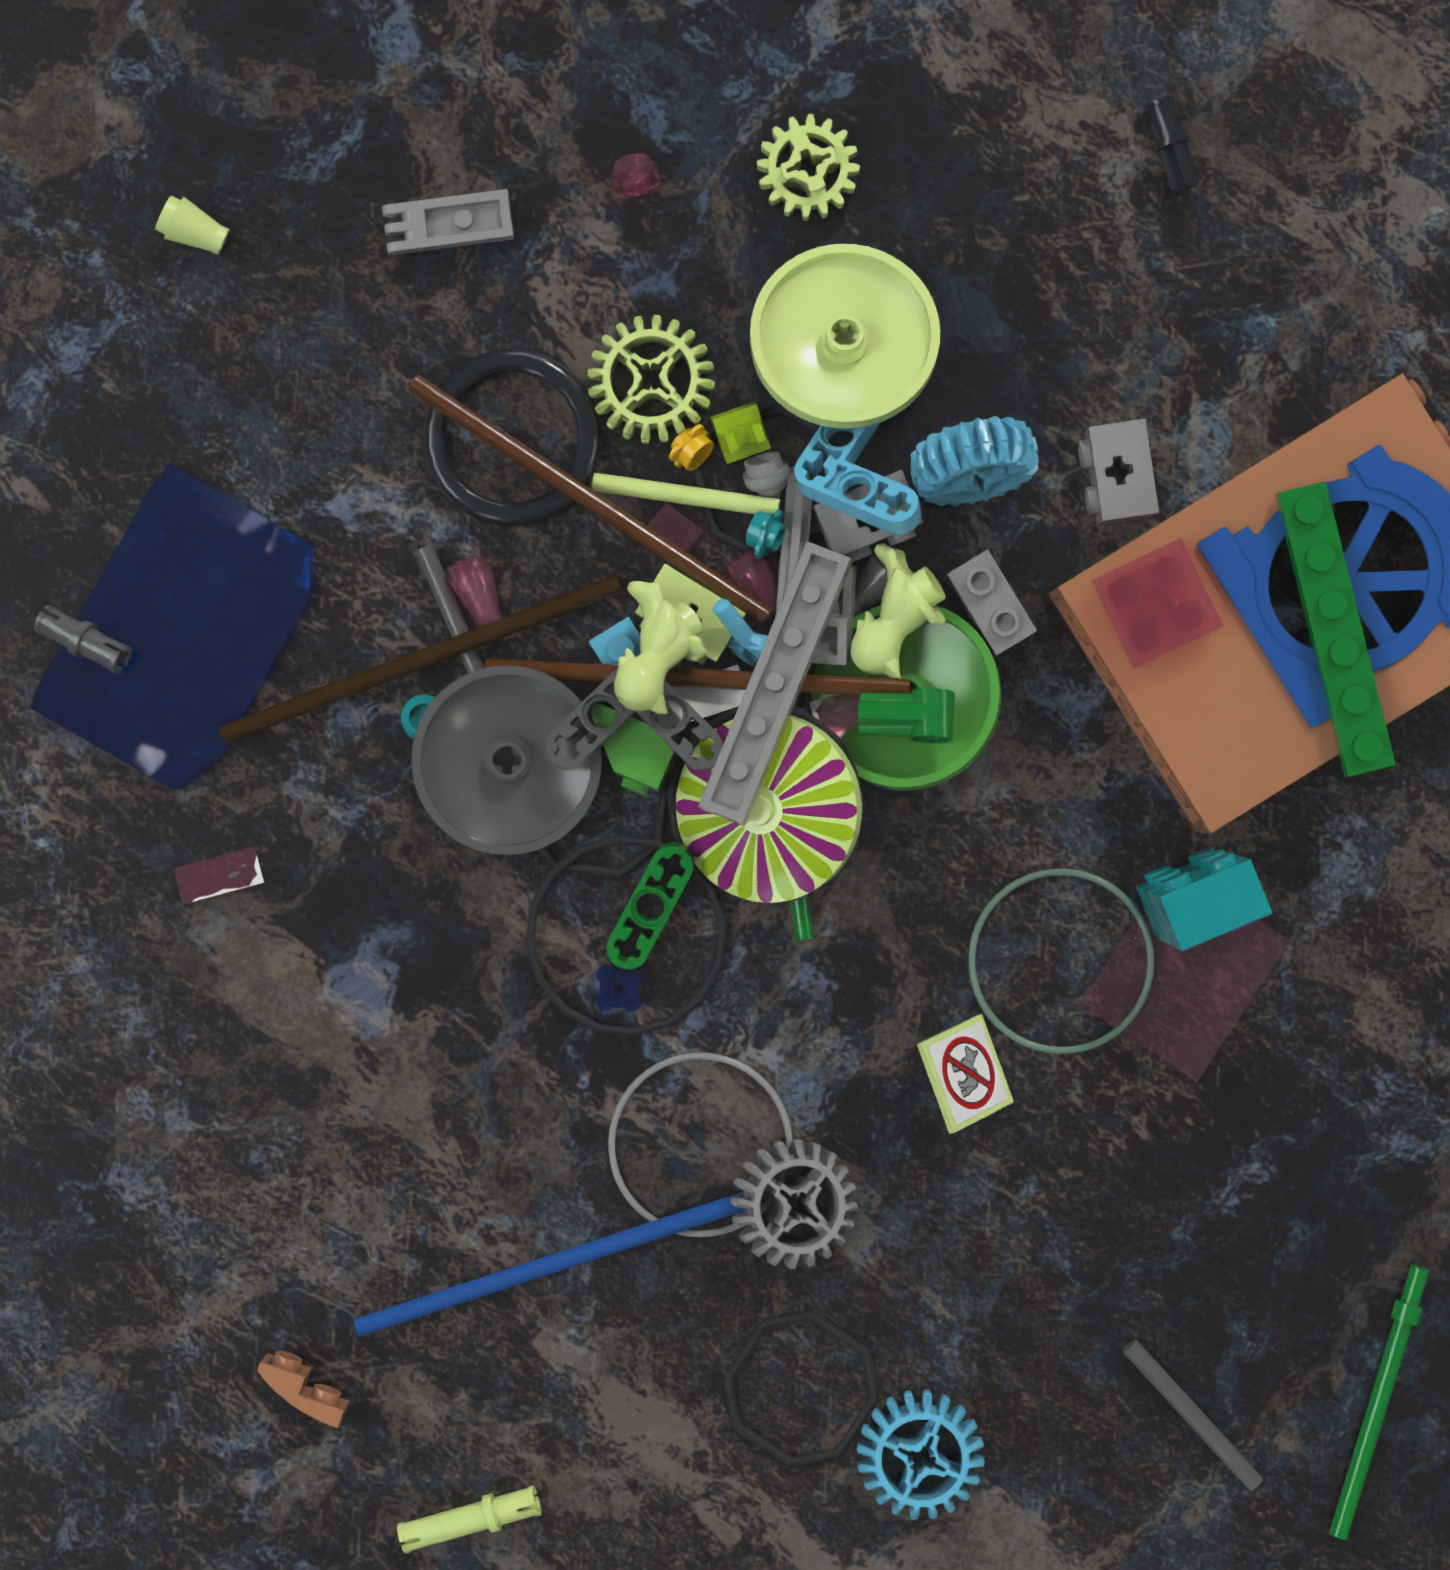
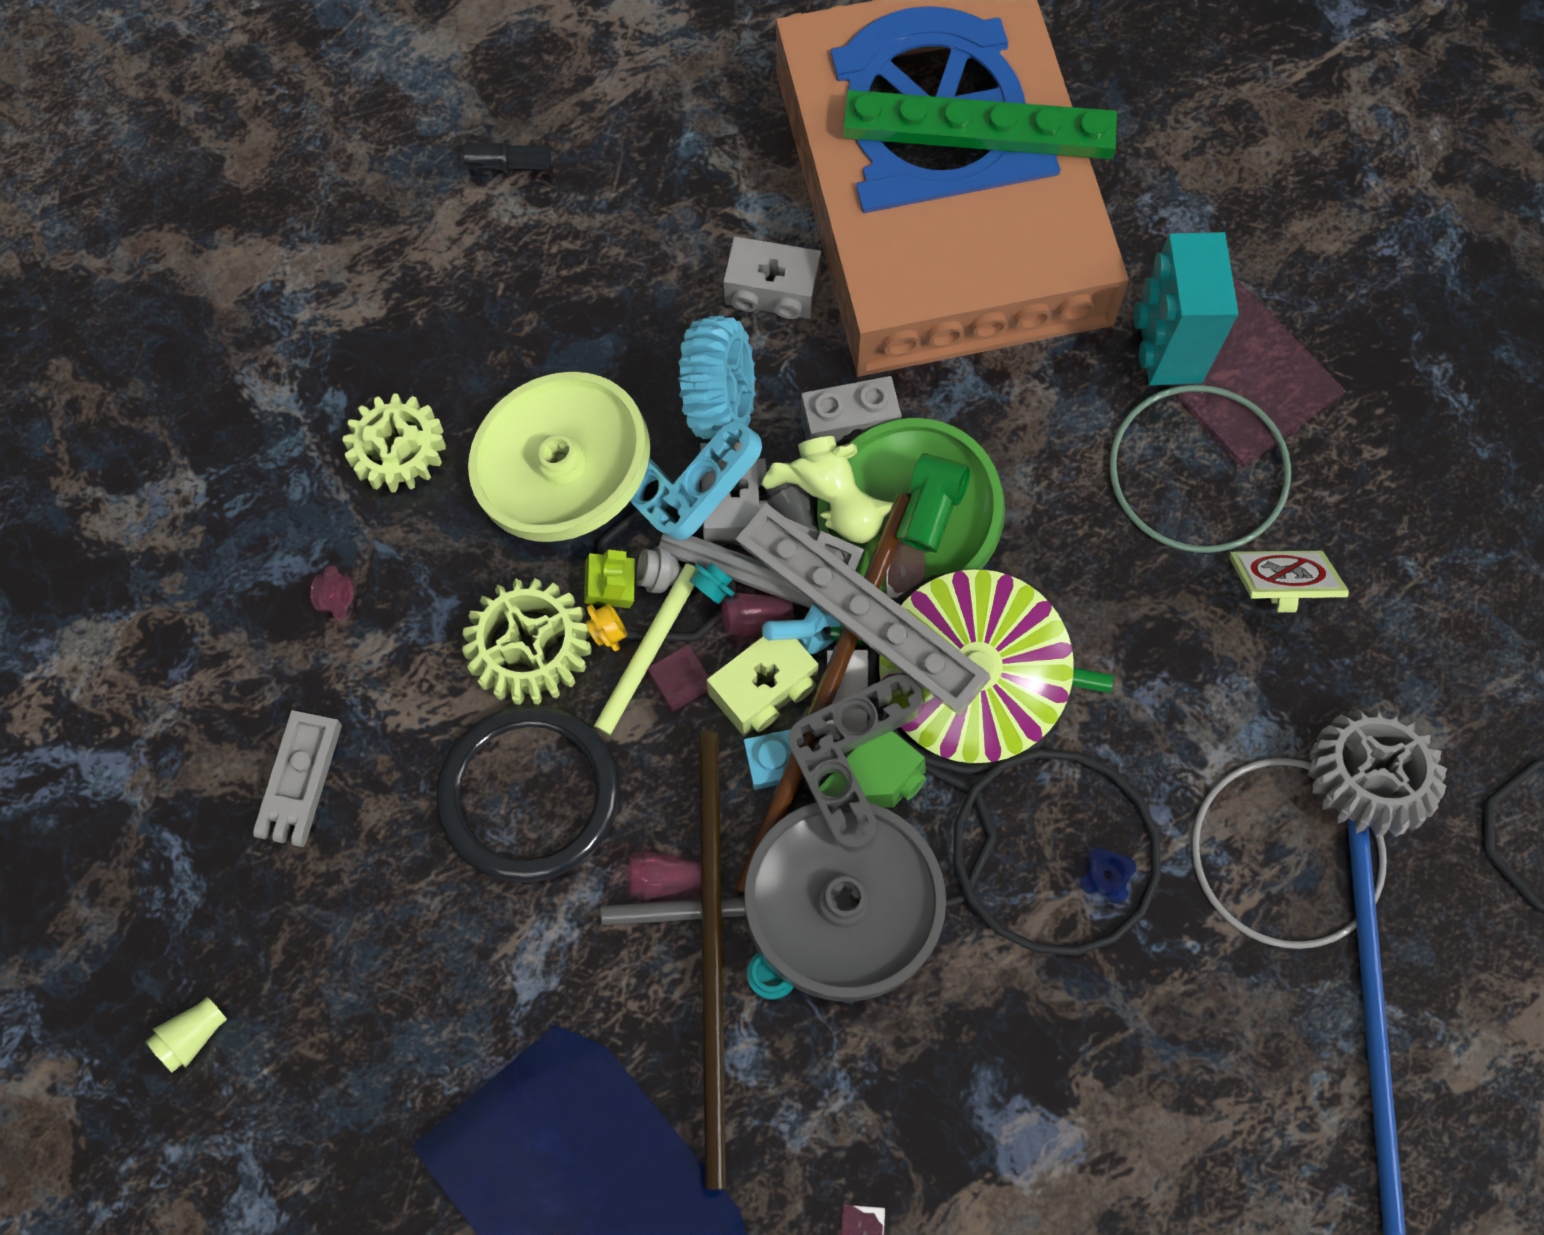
camera: 65 degrees left, 20 degrees down
(589, 499) = (606, 740): reddish brown piece -> none
(645, 941) = (1048, 850): green beam -> none
(665, 639) = (783, 695): yellowish green animal -> none
(1157, 603) = (906, 250): clear pink plate -> none

